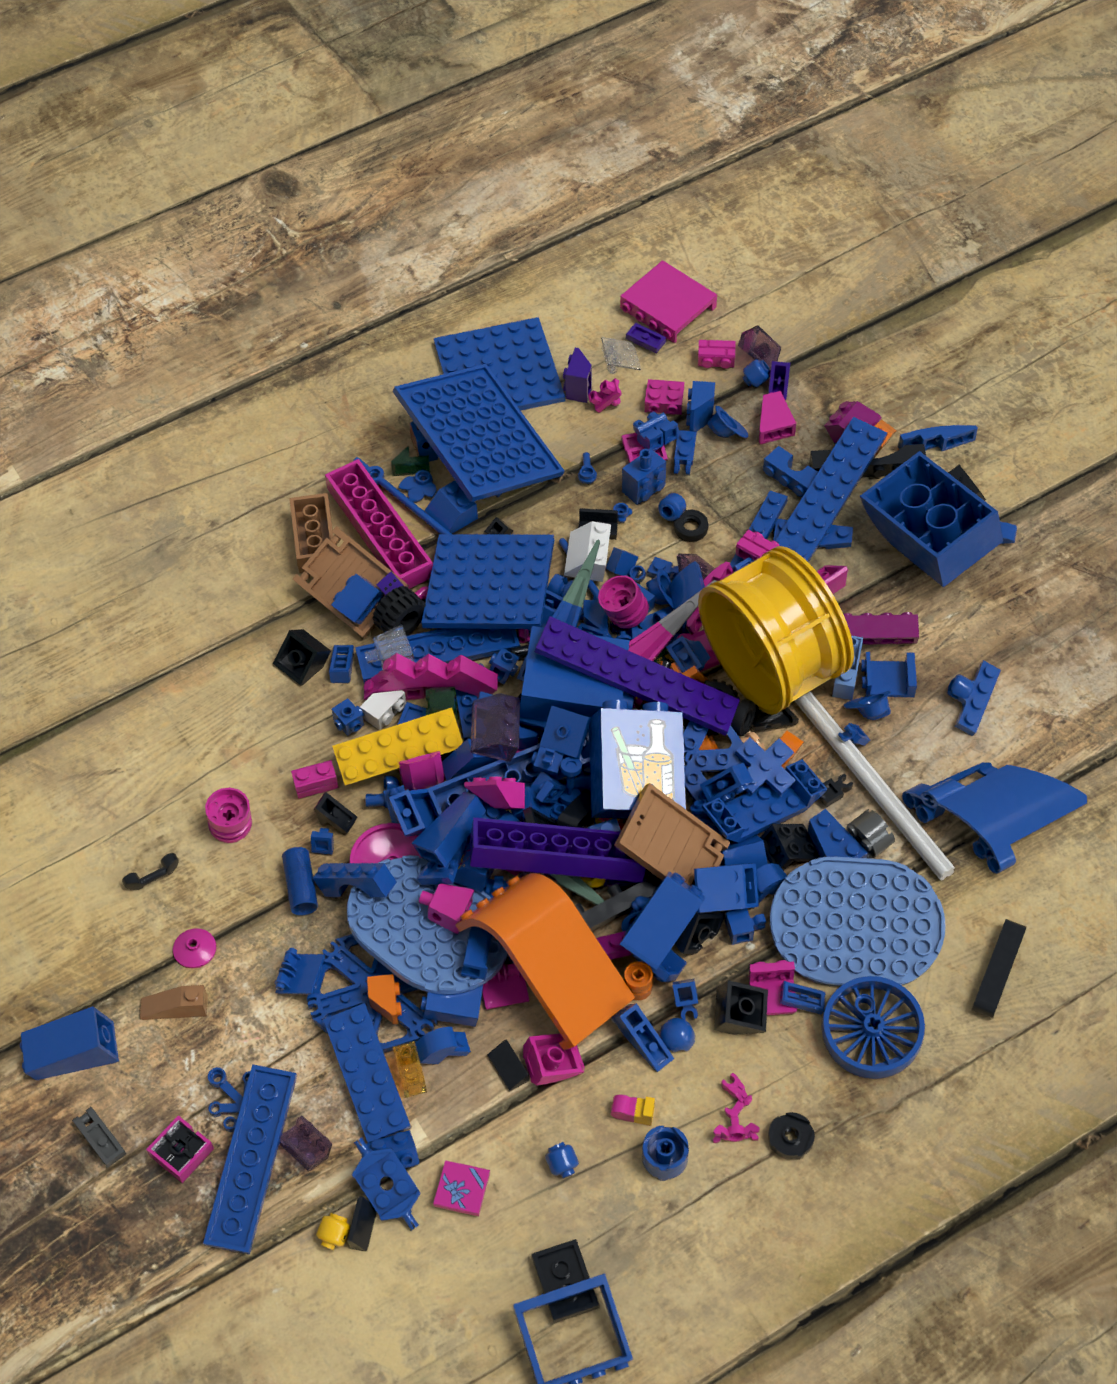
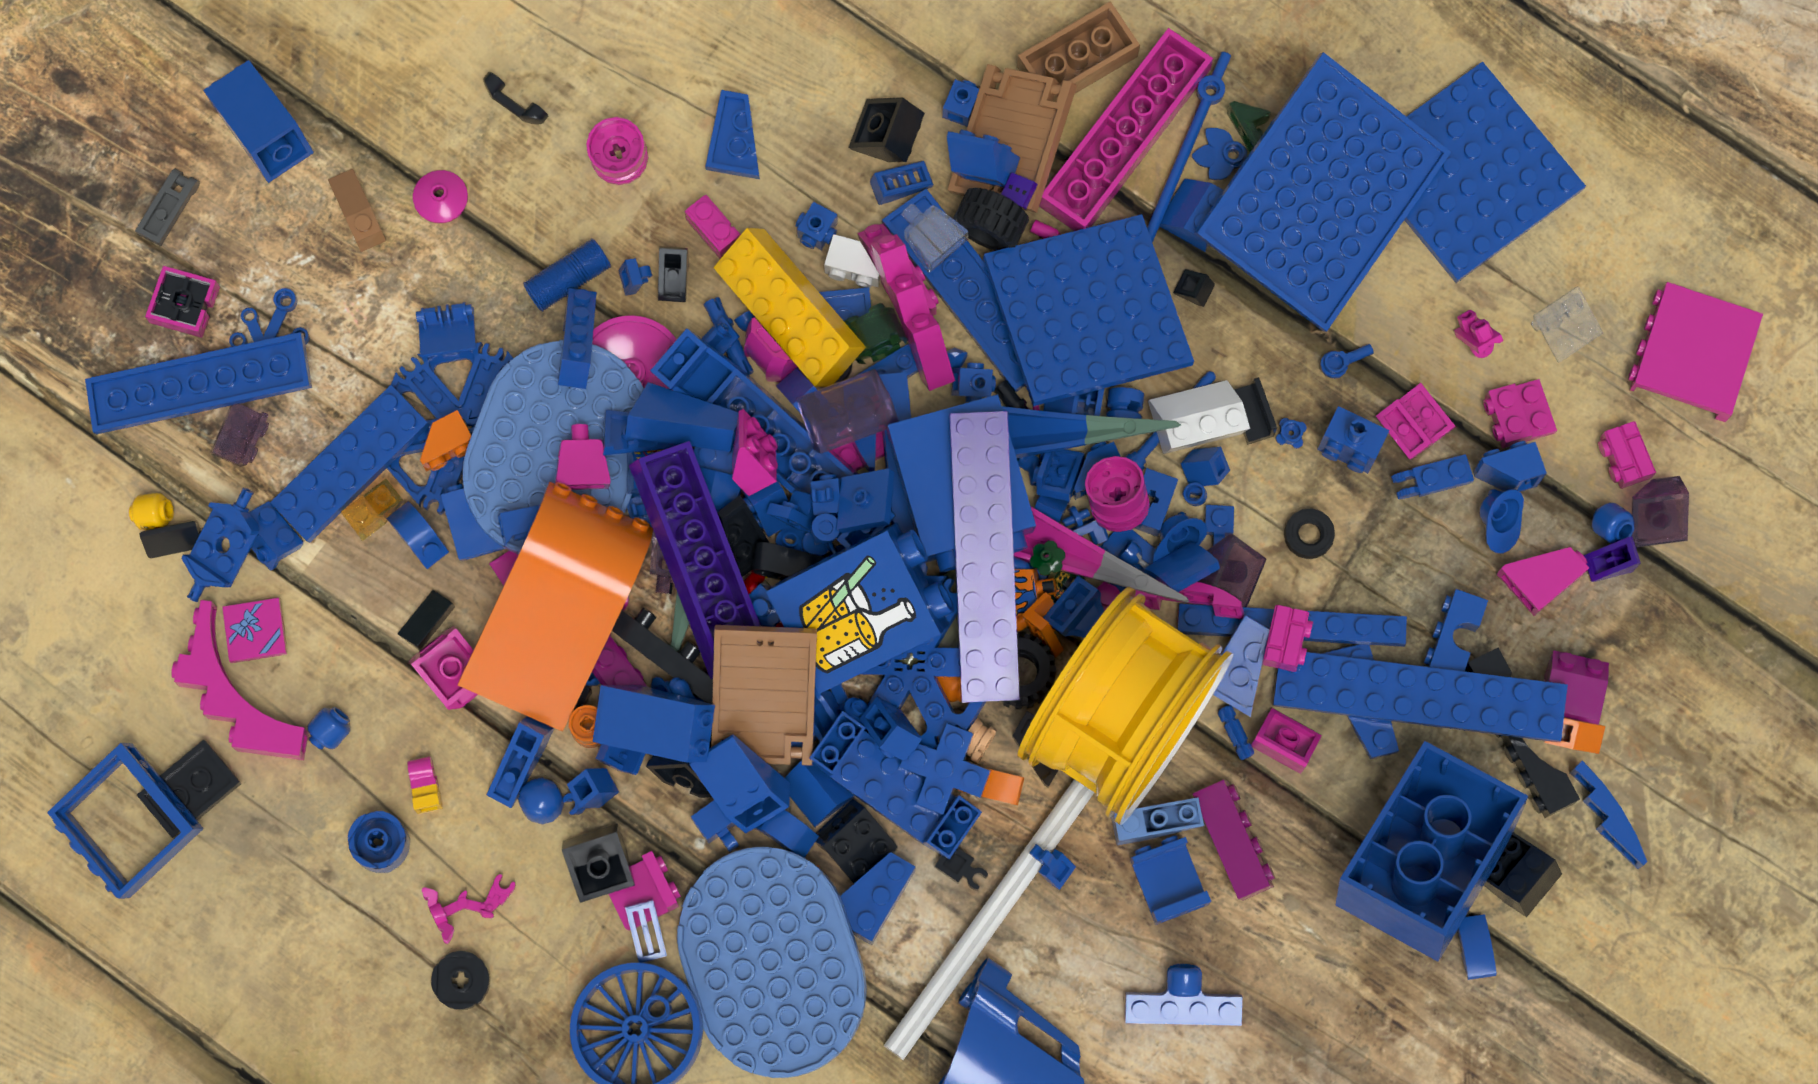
camera: 65 degrees right, 20 degrees up
(255, 748) = (732, 138): none -> blue wing
(307, 608) = (960, 102): none -> blue brick
(506, 1229) = (204, 671): none -> dark pink arch
(578, 377) = (1488, 283): dark purple slope -> none
(646, 338) = (1614, 347): dark purple plate -> none
(648, 653) = (1052, 563): none -> dark green plant
(655, 431) = (1450, 424): blue hips -> none
(672, 506) = (1322, 496): blue head -> none
(743, 717) = (1008, 714): black tyre -> none
(871, 833) = (904, 935): dark grey brick -> none
(873, 706) = (1110, 869): blue piece -> none

